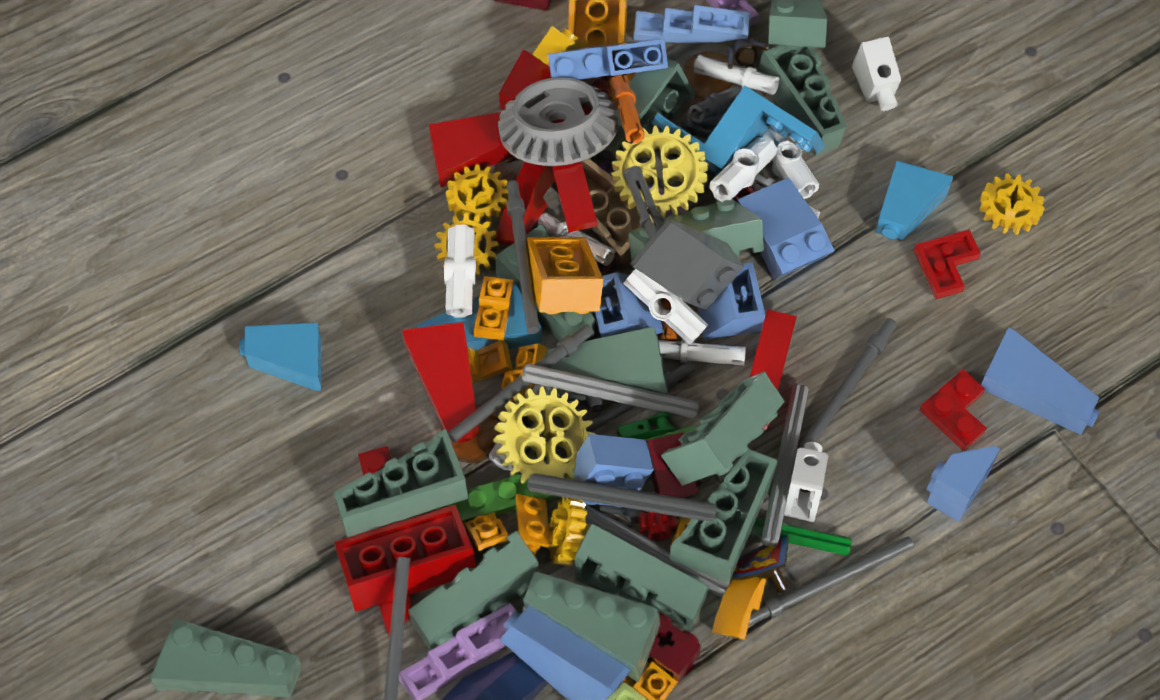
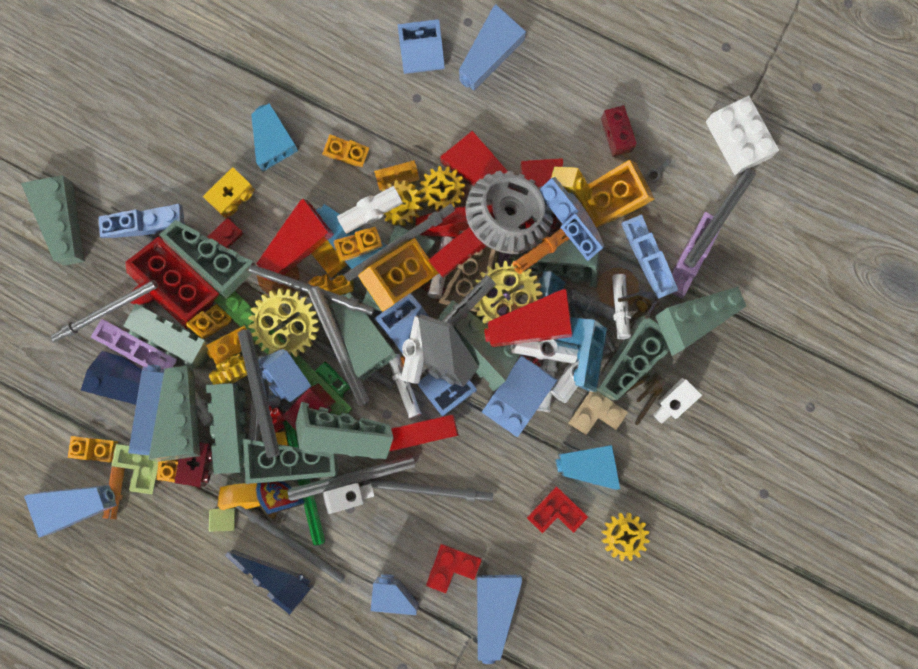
camera: 65 degrees right, 20 degrees up
(285, 131) = (421, 46): none -> medium blue slope
(299, 559) = (139, 222): none -> medium blue slope
(331, 451) = (233, 183): none -> yellow brick
(334, 61) = (493, 45): none -> medium blue slope
(359, 281) = (345, 151): none -> light orange slope
(424, 237) = (400, 172): none -> light orange hinge
(713, 143) = (534, 322): none -> red slope
(756, 651) = (221, 519): none -> yellowish green slope
(841, 164) = (596, 407): none -> tan plate
(847, 94) = (652, 385): none -> dark brown plant
(882, 609) = (284, 586): none -> dark blue wedge

